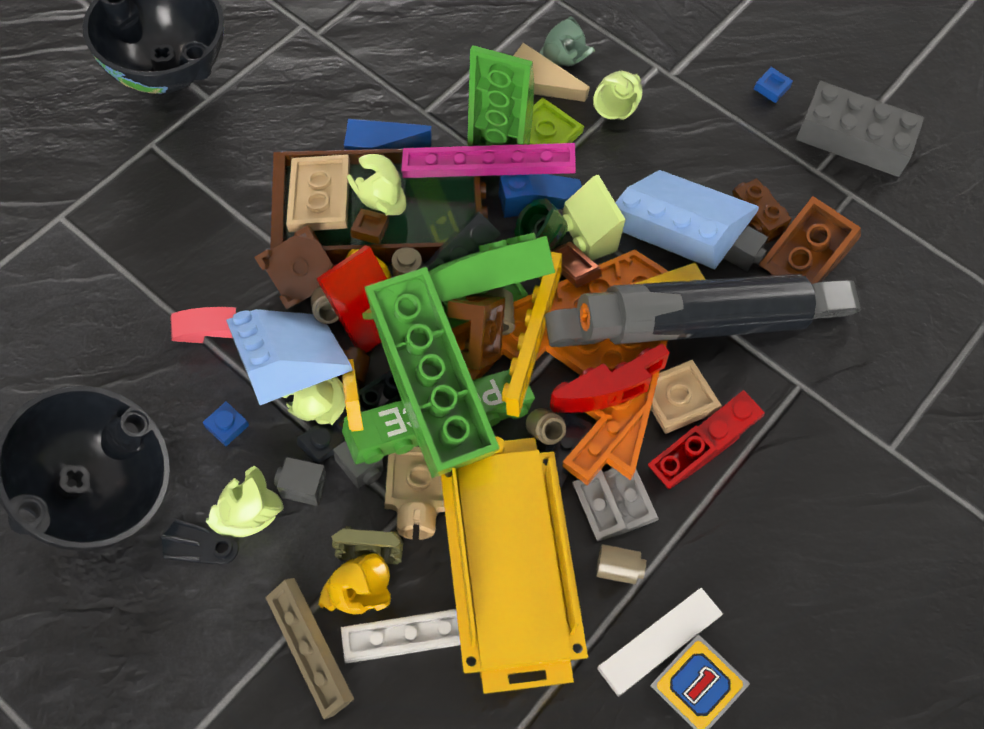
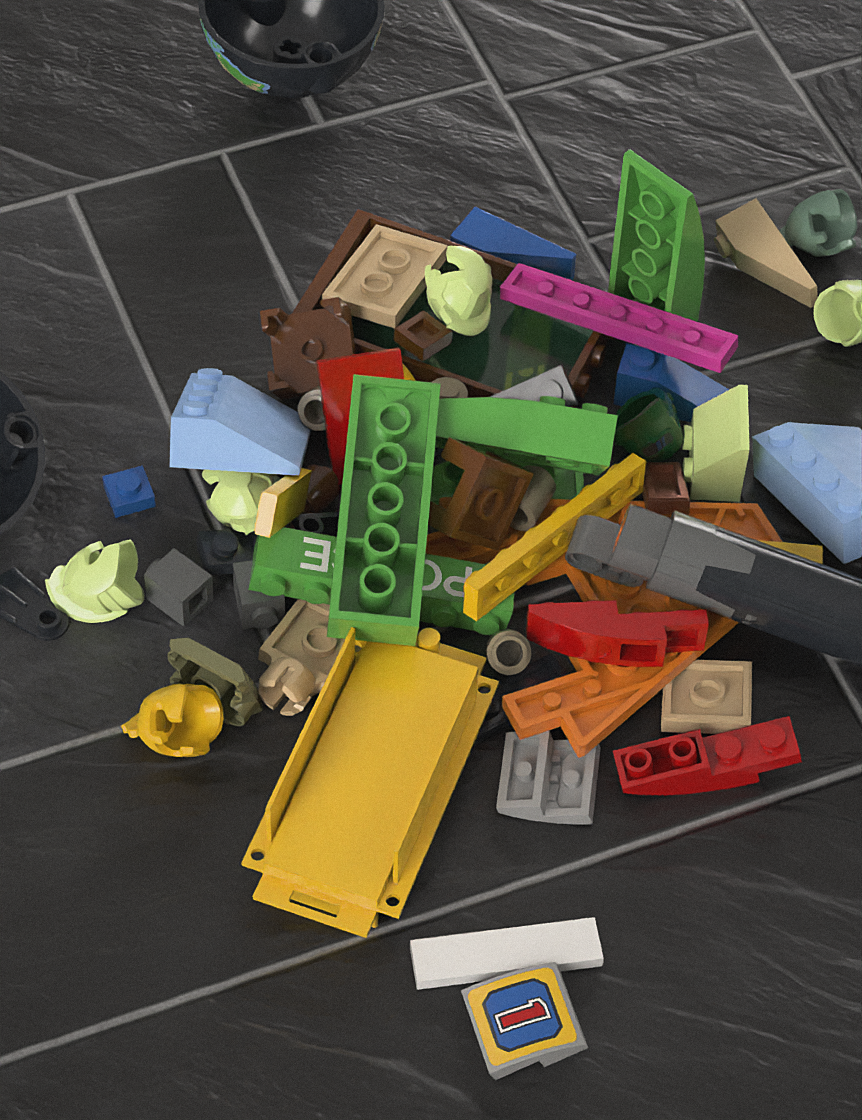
camera: 30 degrees right, 10 degrees down
(196, 323) = (153, 366): coral slope -> none
(309, 648) = (83, 762): dark tan plate -> none
(400, 636) = (191, 801): white tile -> none
(553, 125) = (745, 313): lime tile -> none
(620, 564) = (506, 844): dark tan brick -> none

